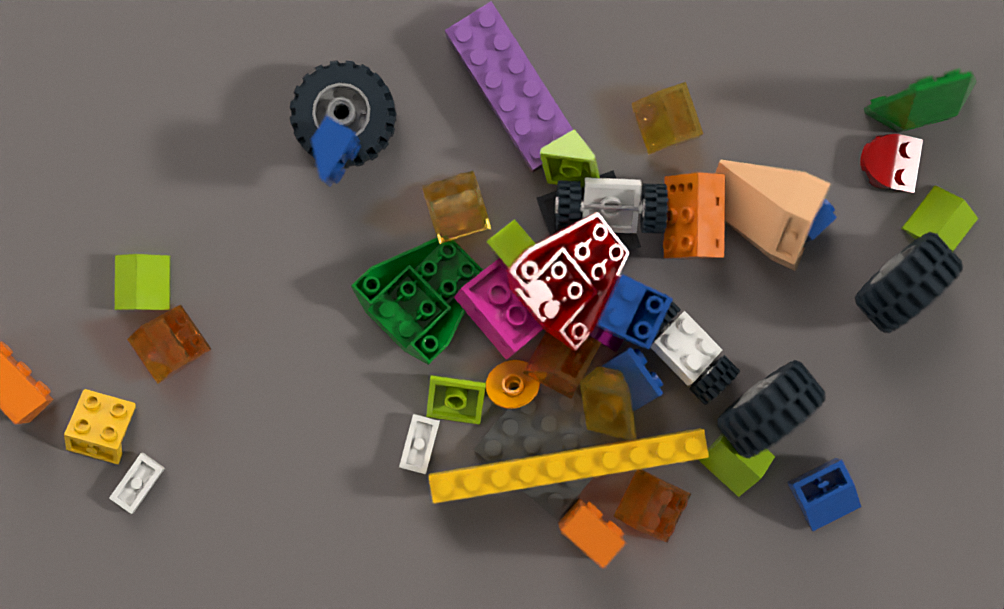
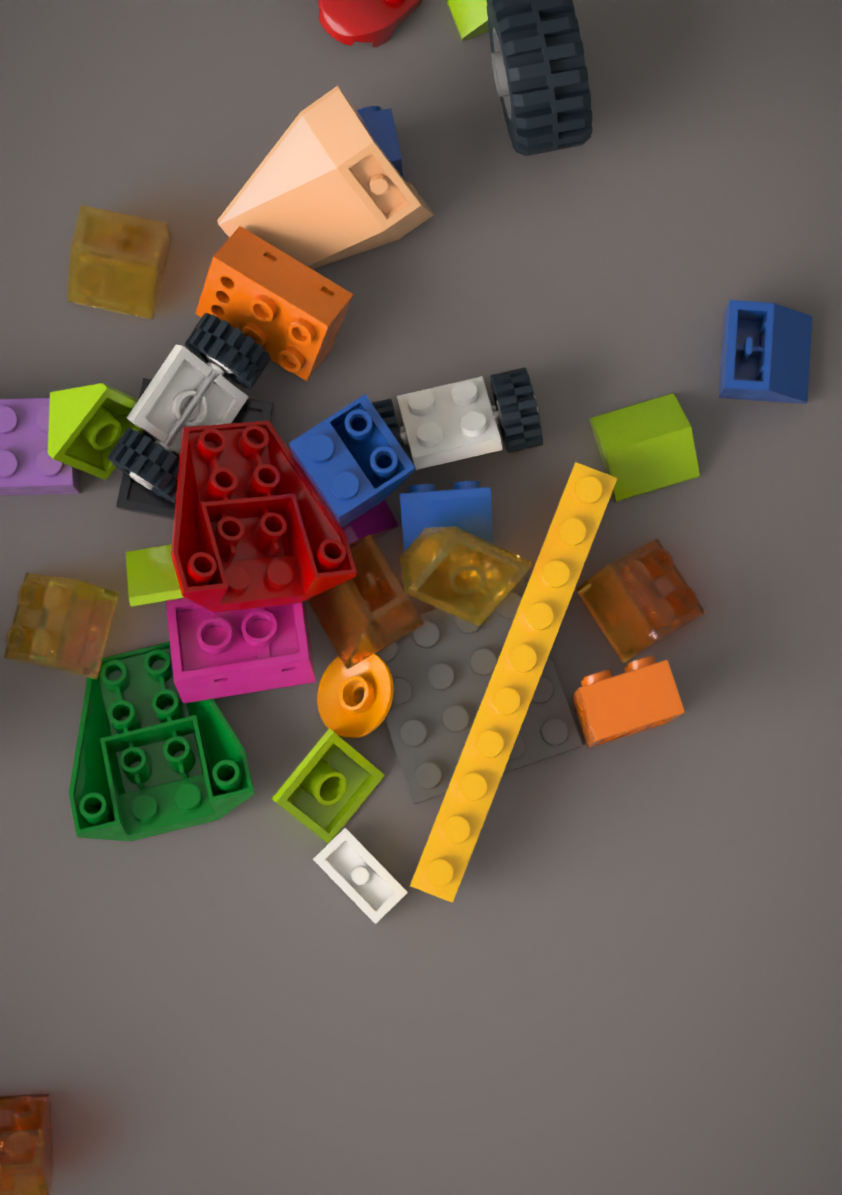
camera: 50 degrees left, 5 degrees down
(771, 409) = (602, 353): black wheel -> none

